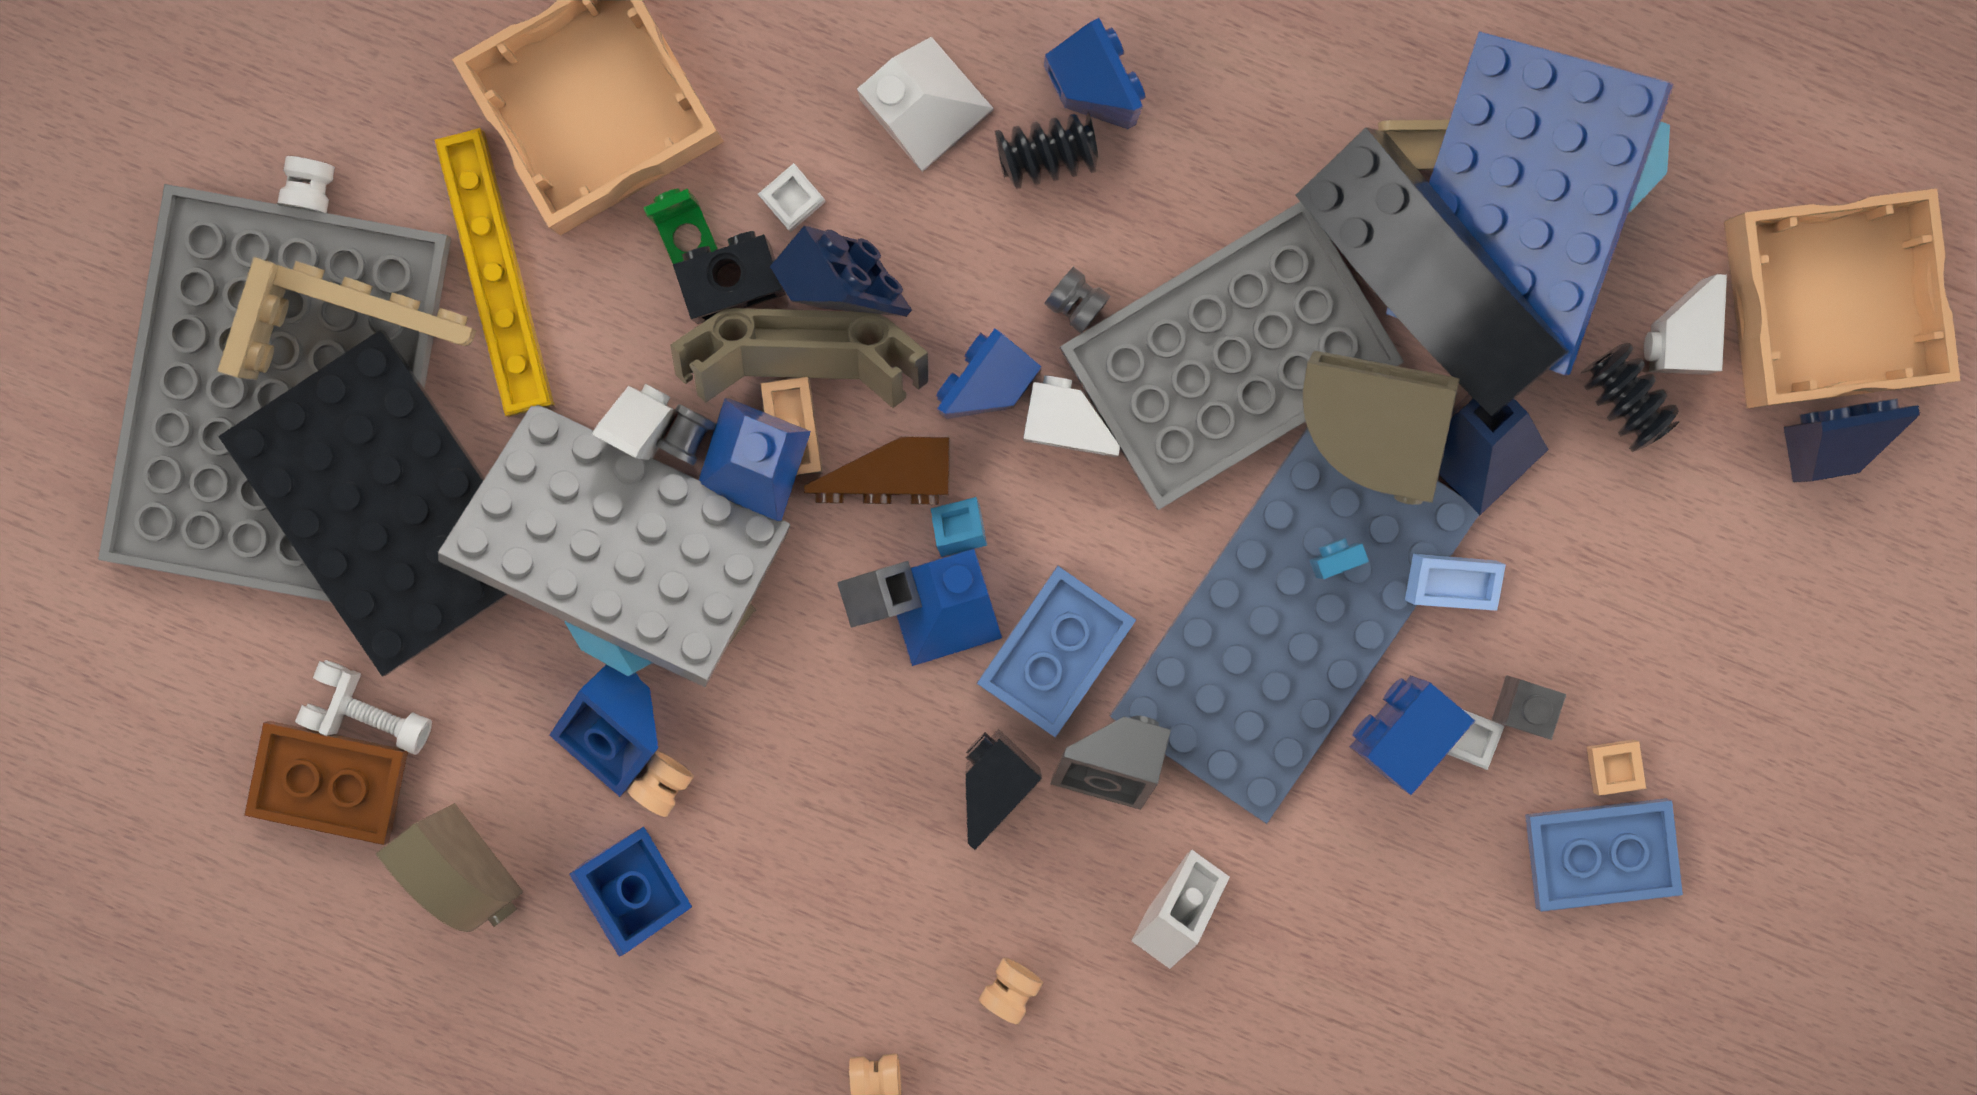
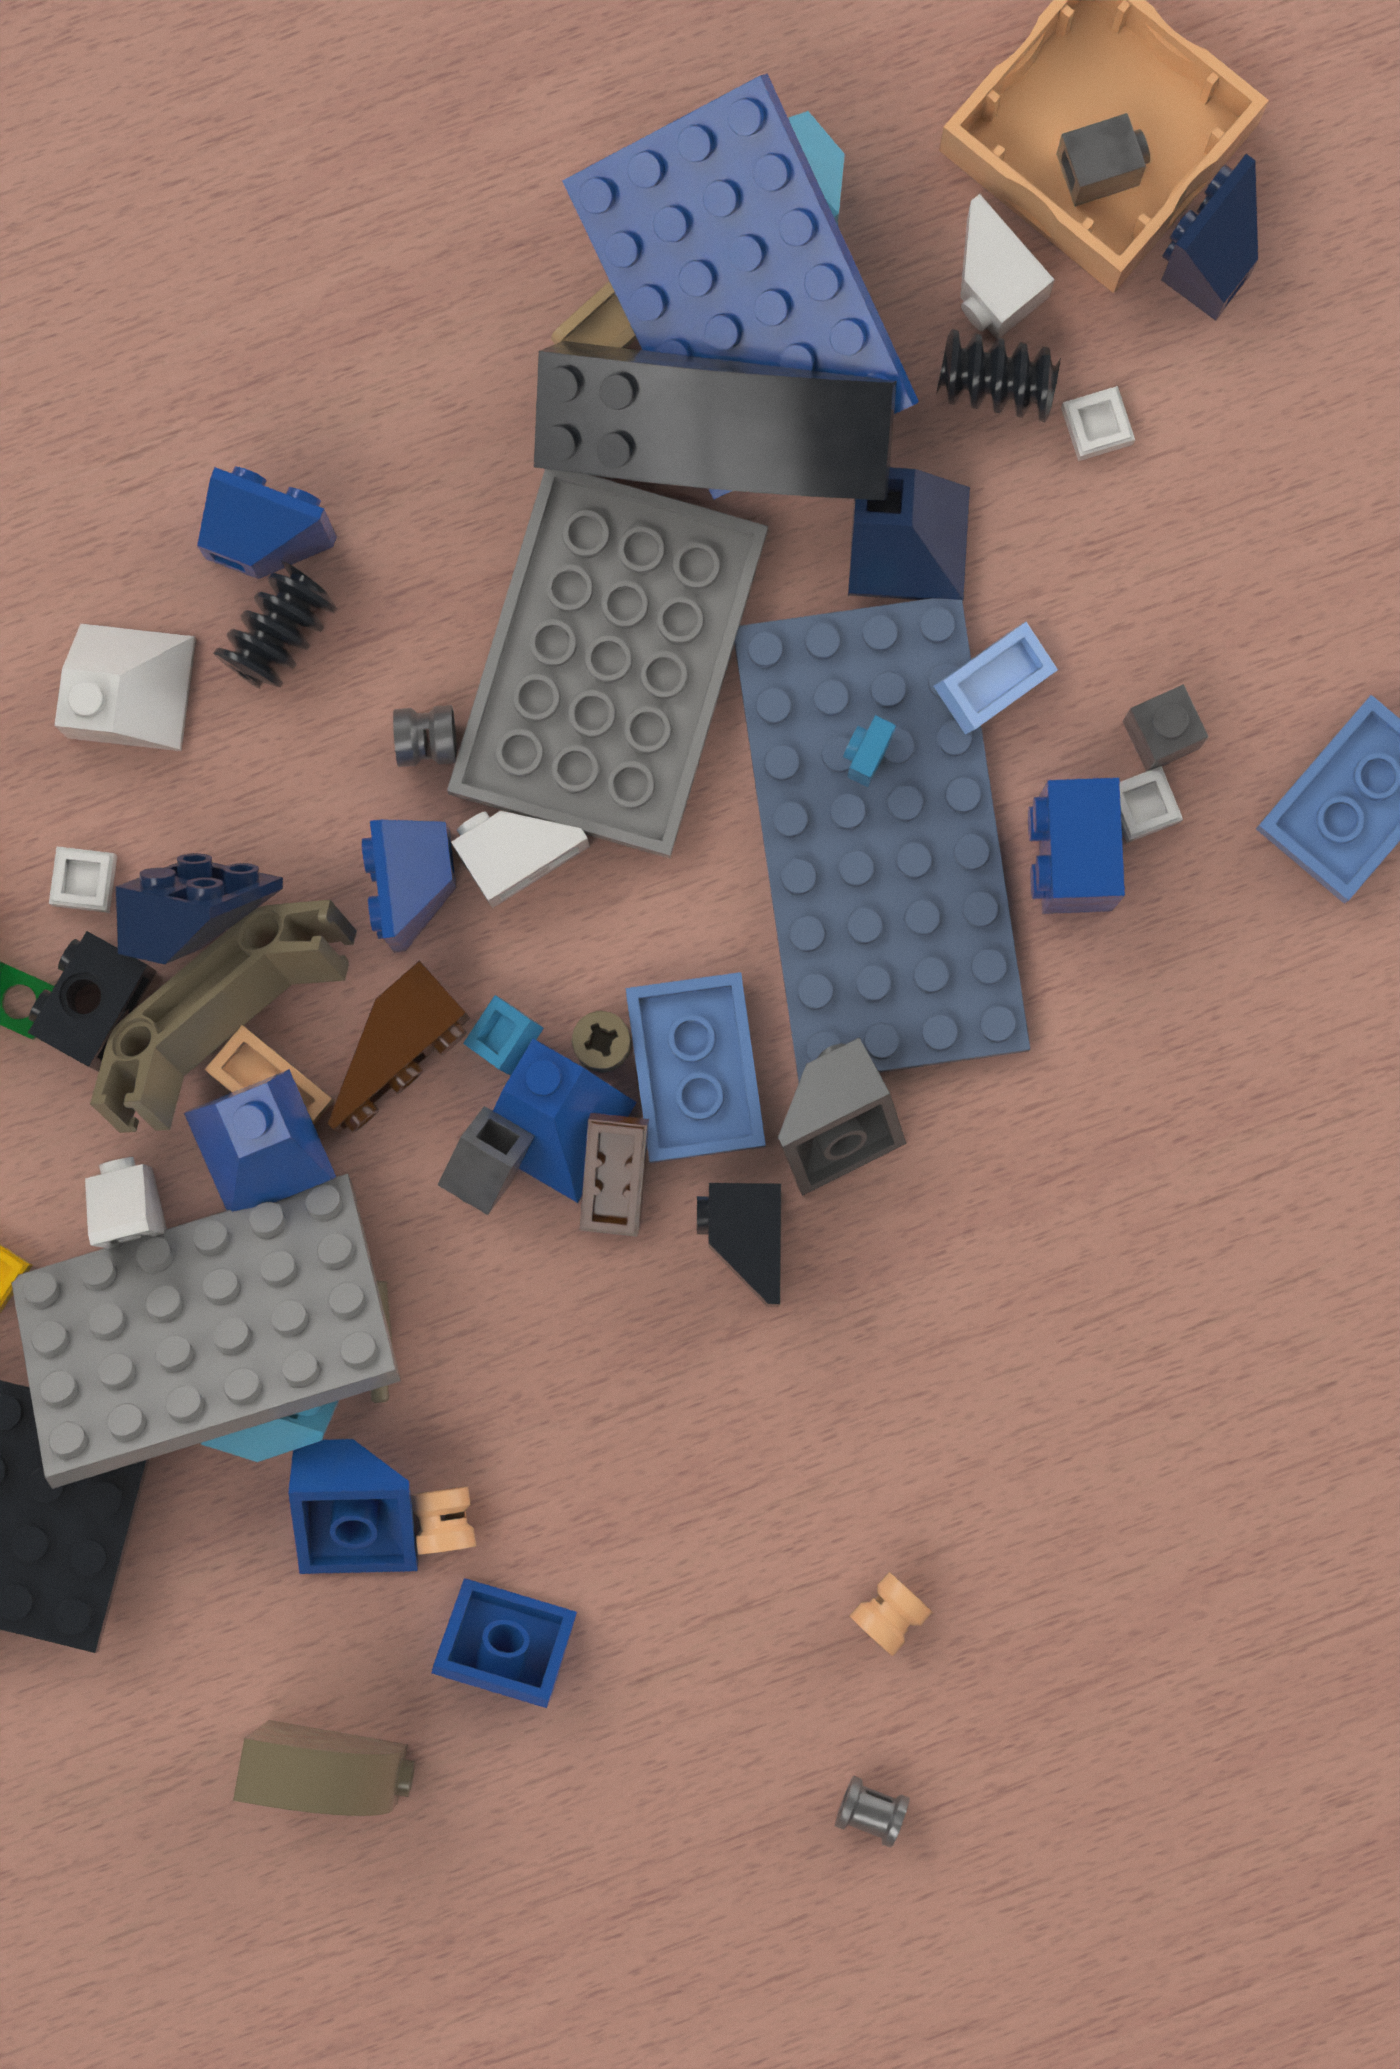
camera: 35 degrees left, 5 degrees down
(326, 782) = (130, 1806): dark orange plate -> none
(410, 732) = (167, 1686): white bar -> none
(686, 434) = (178, 1178): flat silver bush -> none
(949, 671) = (614, 1174): none -> plate
(1010, 991) = (939, 1415): light nougat wheel -> none
(1017, 578) = (606, 1050): none -> dark tan wheel
(1181, 910) = (1025, 1198): white slope -> none
(1379, 422) = (792, 595): dark tan brick -> none
(1616, 767) = (1295, 711): light nougat plate -> none
(1662, 481) = (1098, 423): none -> white tile
(1821, 321) = (1102, 159): none -> flat silver brick

